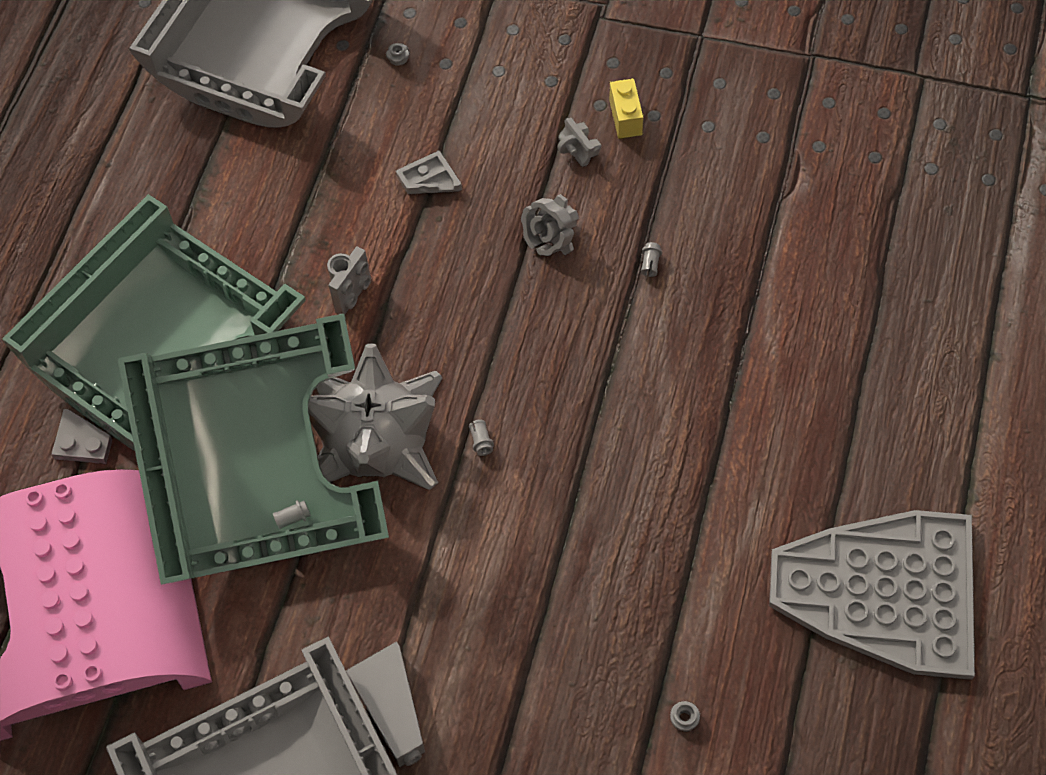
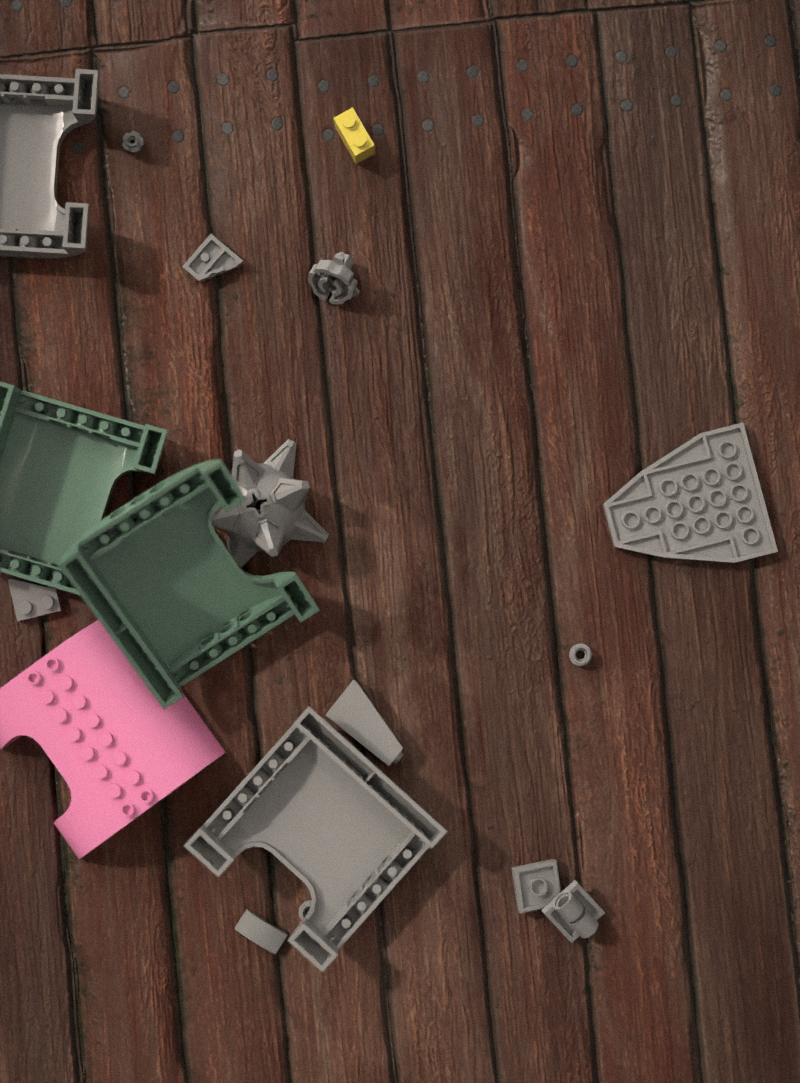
camera: 20 degrees left, 25 degrees up
(292, 514) = (233, 611): light grey pin -> none
(348, 278) = (189, 398): light grey plate -> none
(482, 443) = (349, 487): light grey pin -> none
(575, 141) = (324, 185): light grey hips -> none
(651, 256) = (425, 277): light grey pin -> none

